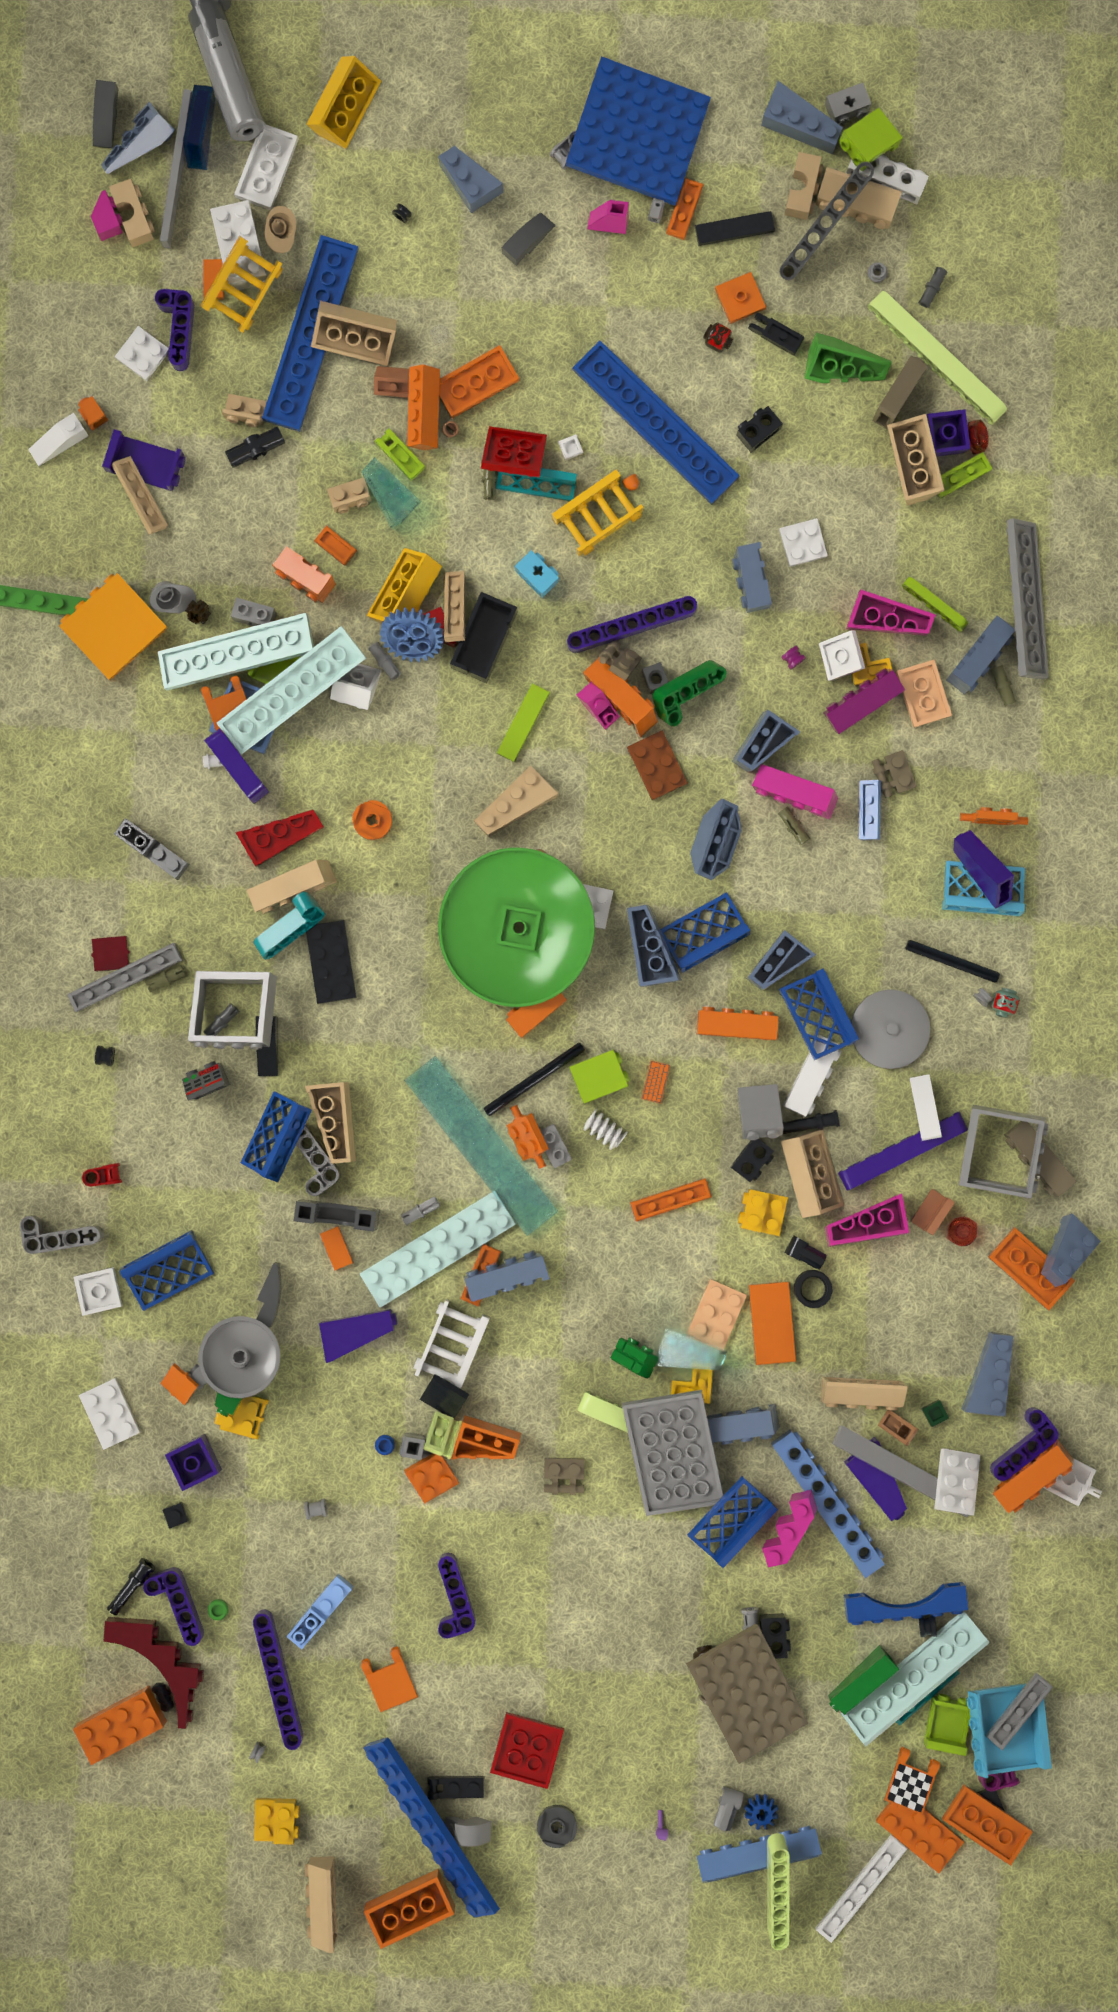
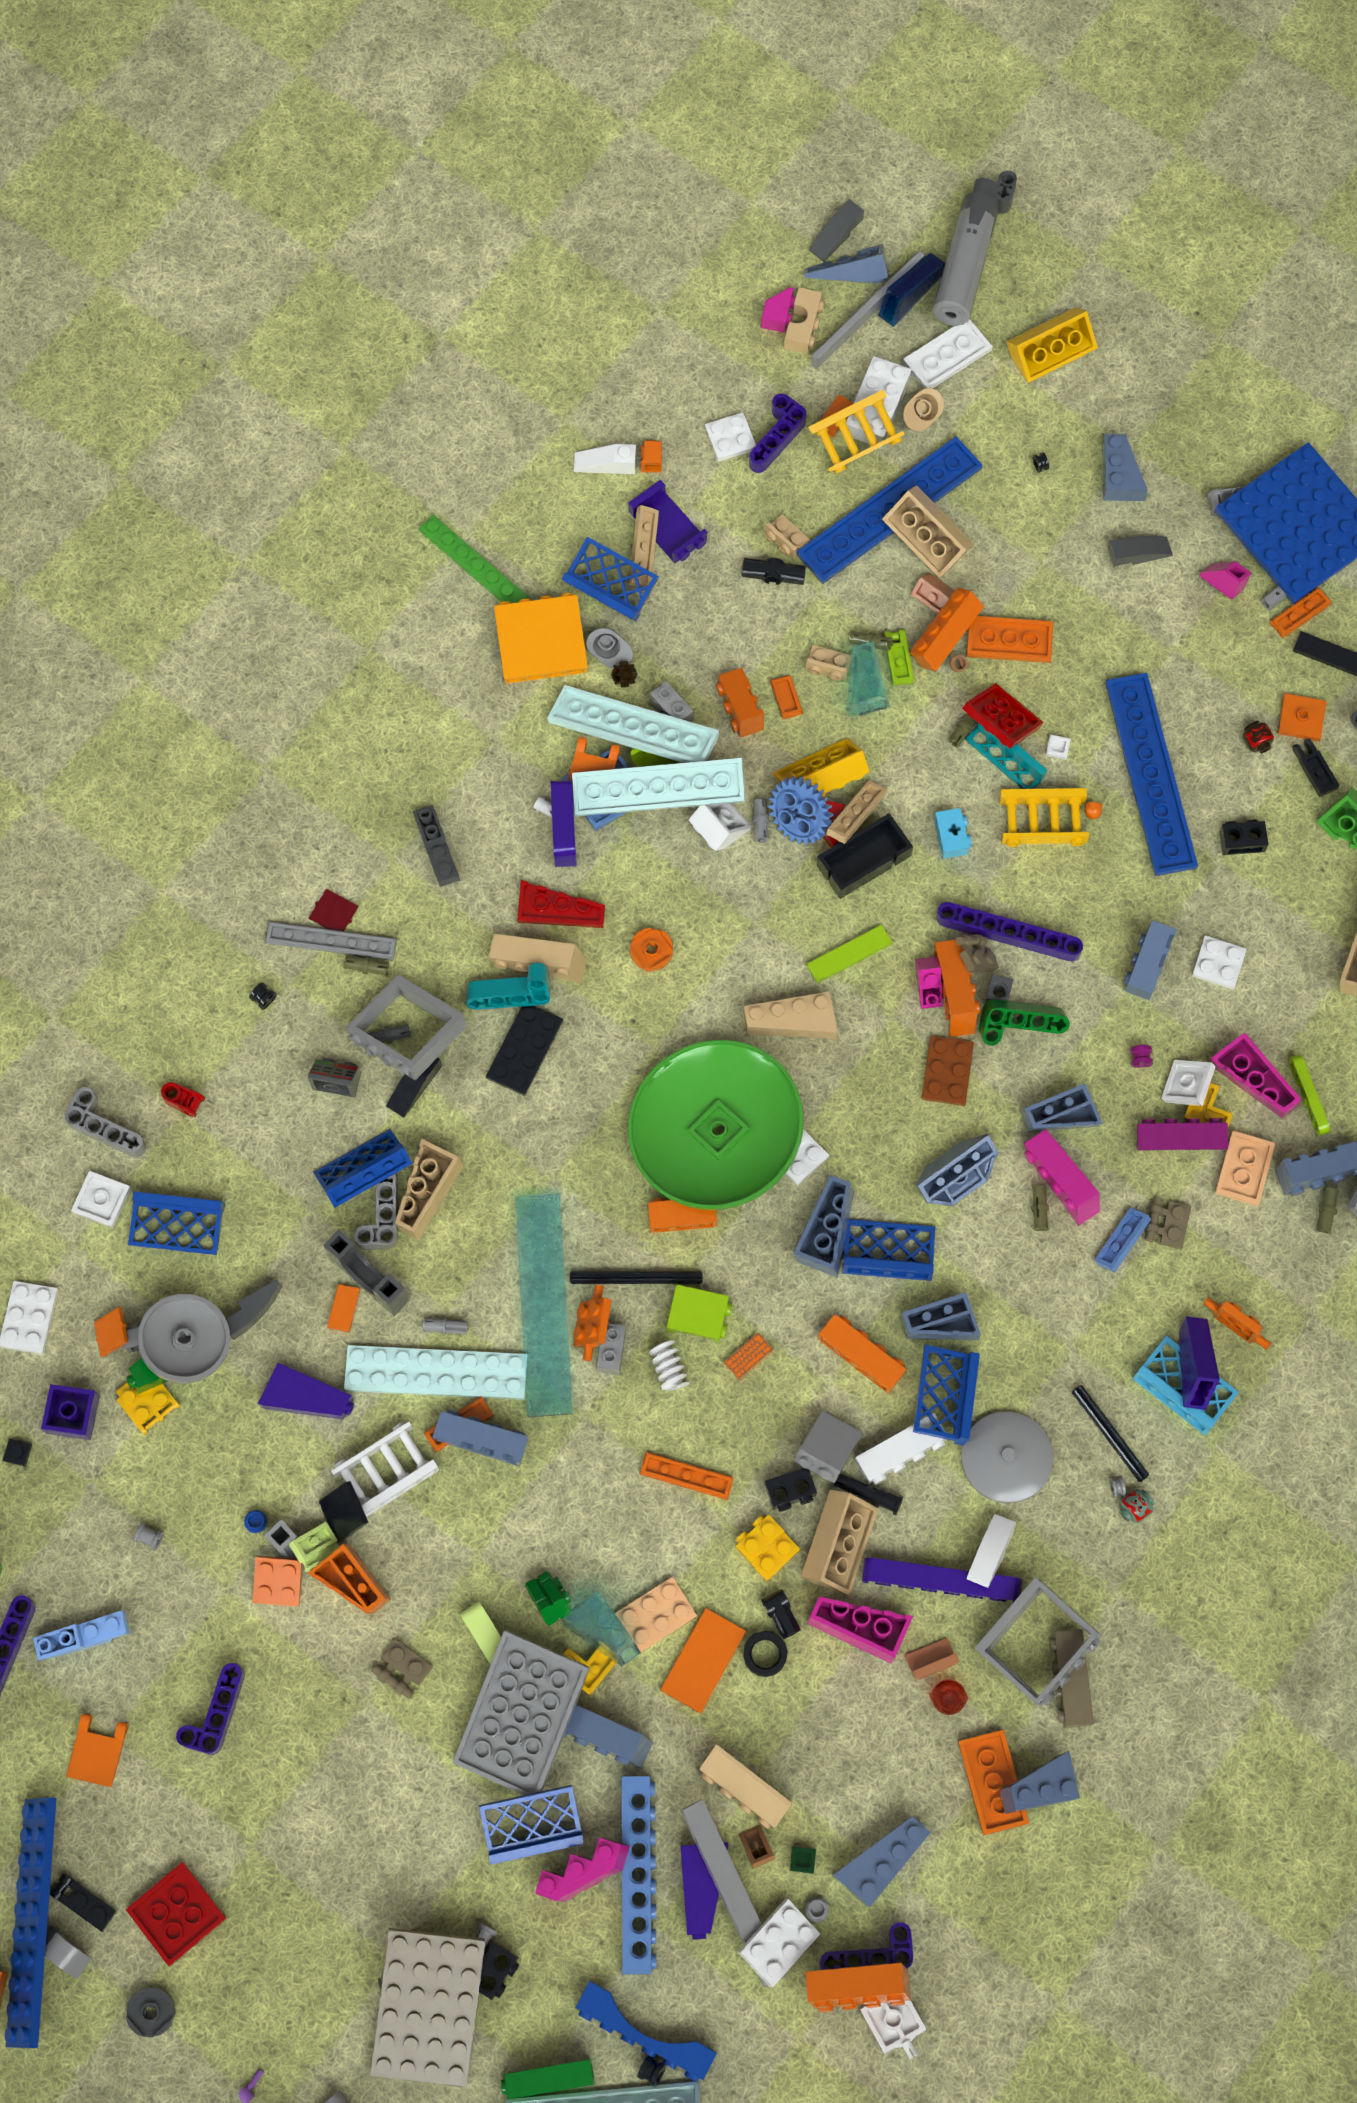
camera: 35 degrees right, 15 degrees down
(135, 557) = (601, 594): none -> blue fence
(369, 454) = (879, 641): none -> olive pin
(966, 1439) = (817, 1909): none -> light grey plate

